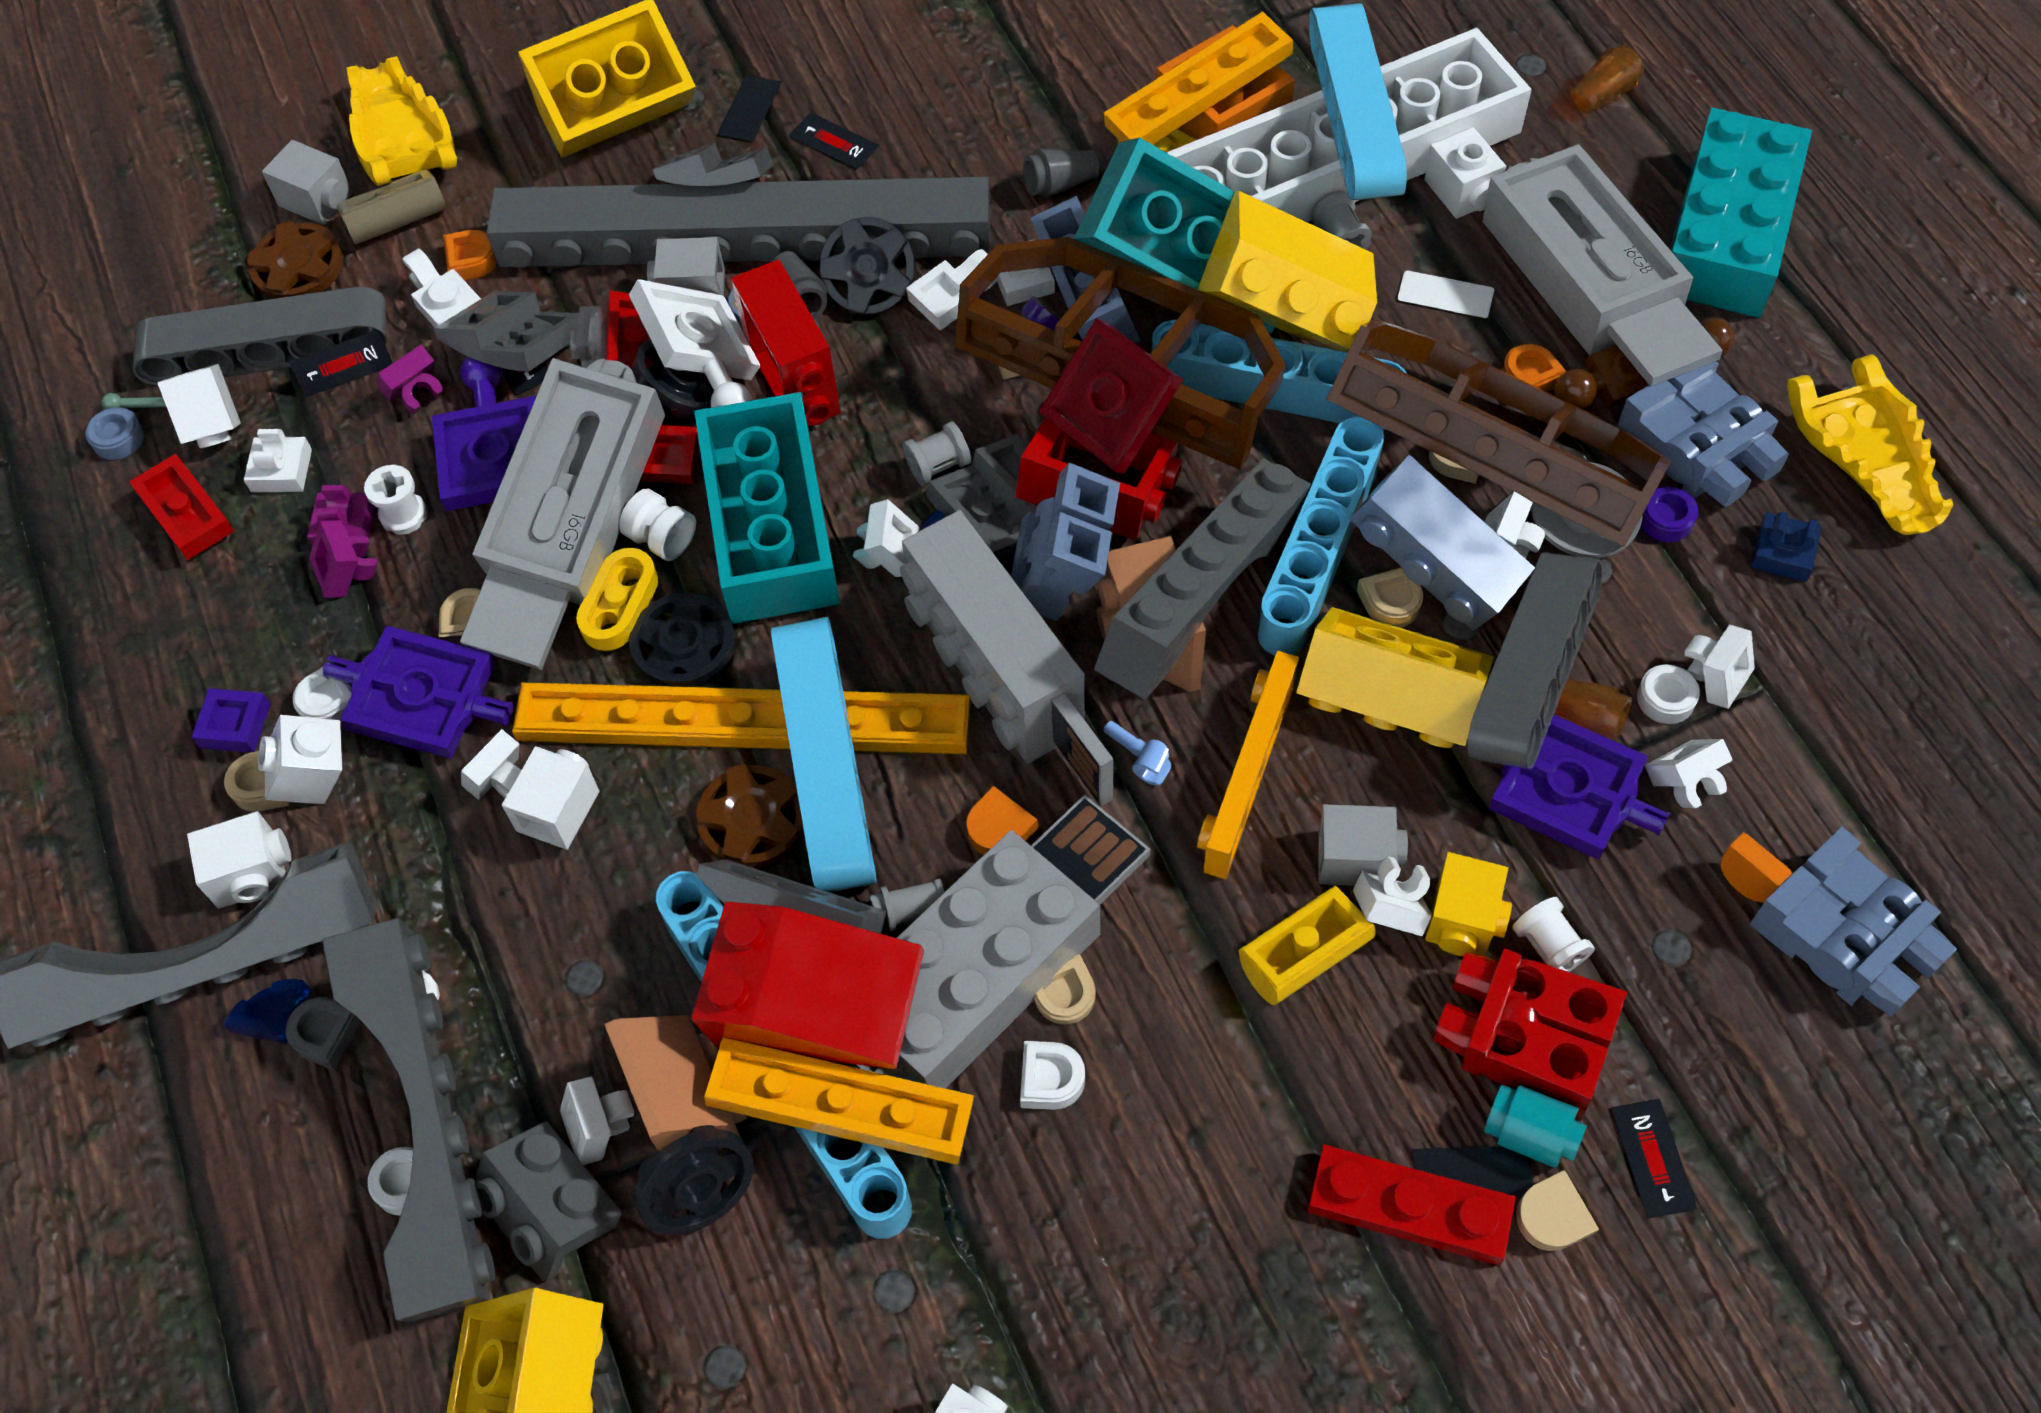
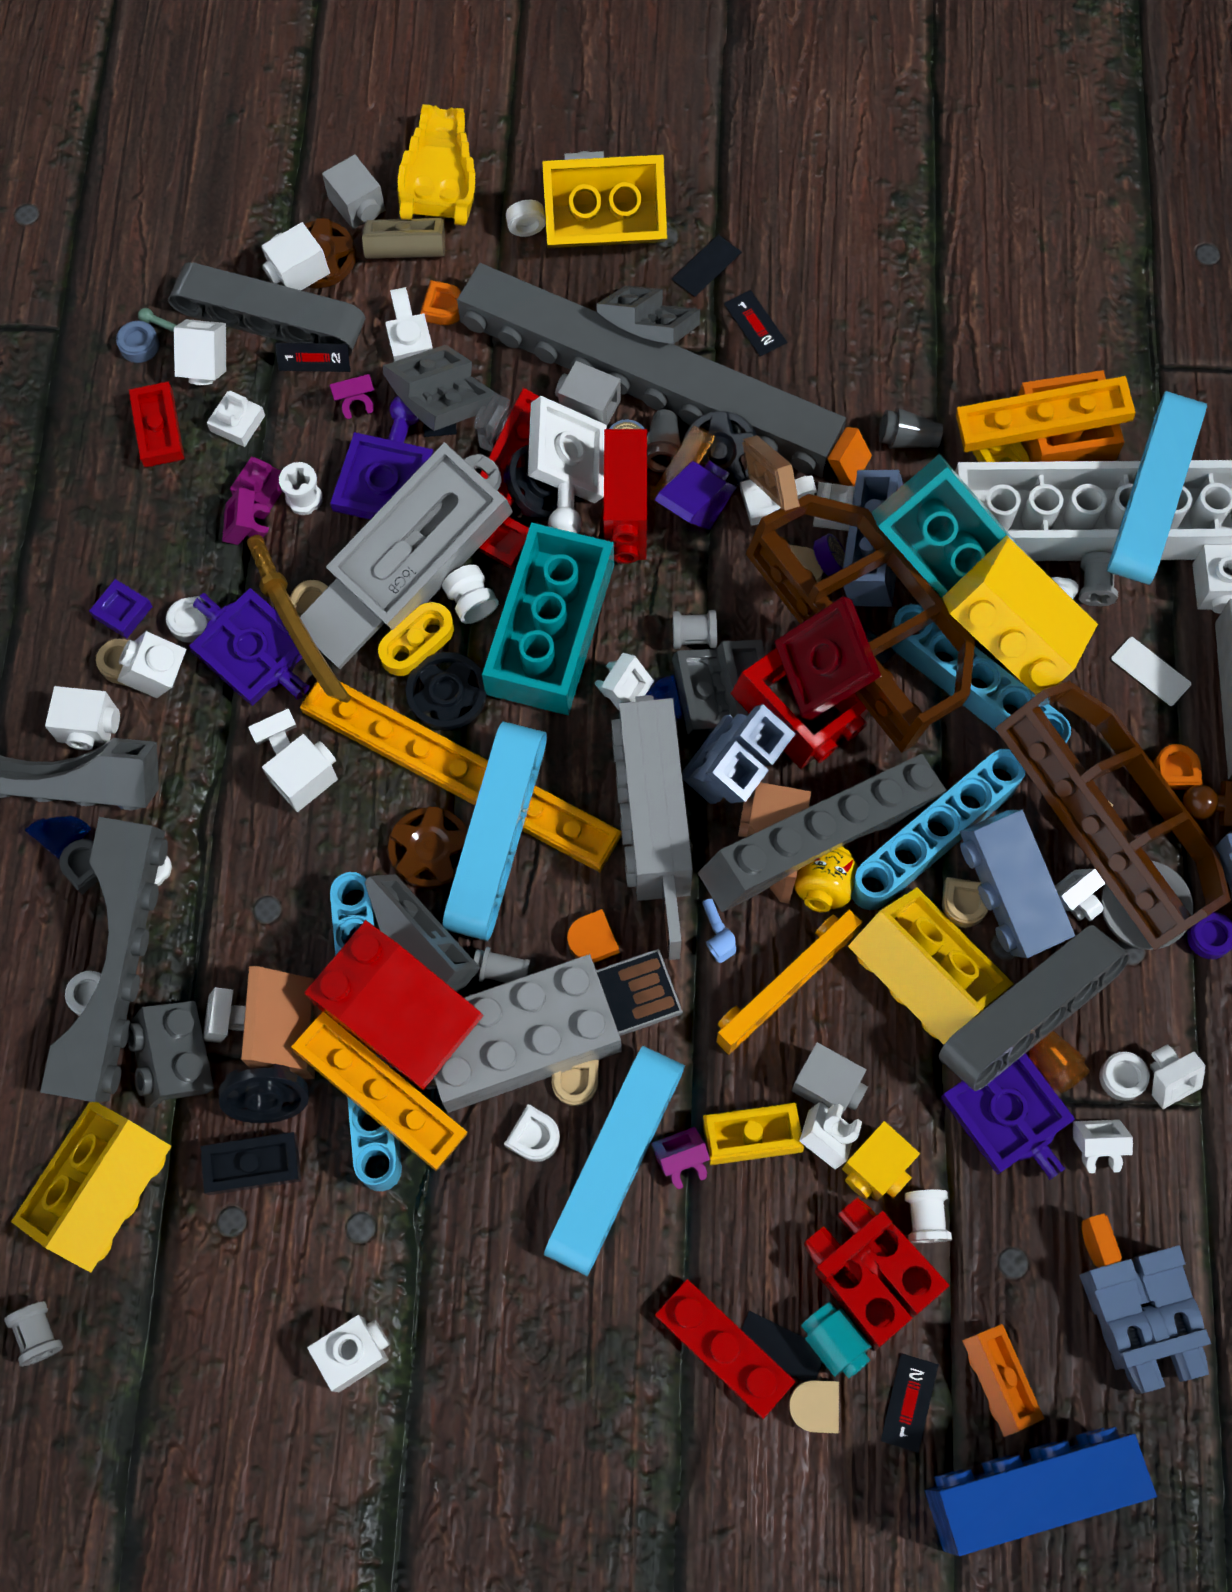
camera: 25 degrees right, 10 degrees up
(271, 265) = (294, 258): none -> white brick
(416, 614) = (274, 586): none -> pearl gold sword
(522, 133) = (526, 218): none -> white tile
(715, 1279) = (250, 1163): none -> black plate
(835, 291) = (691, 450): none -> clear orange tile
(867, 313) = (697, 493): none -> dark purple slope
(942, 244) = (771, 472): none -> medium nougat tile
(1010, 215) = (849, 456): none -> orange tile
(1164, 1056) = (614, 1161): none -> medium azure beam
(1234, 638) = (827, 881): none -> yellow head
(1235, 1005) = (680, 1153): none -> magenta tile
(1761, 1087) = (1003, 1380): none -> orange plate
(1861, 1167) = (1038, 1493): none -> blue brick

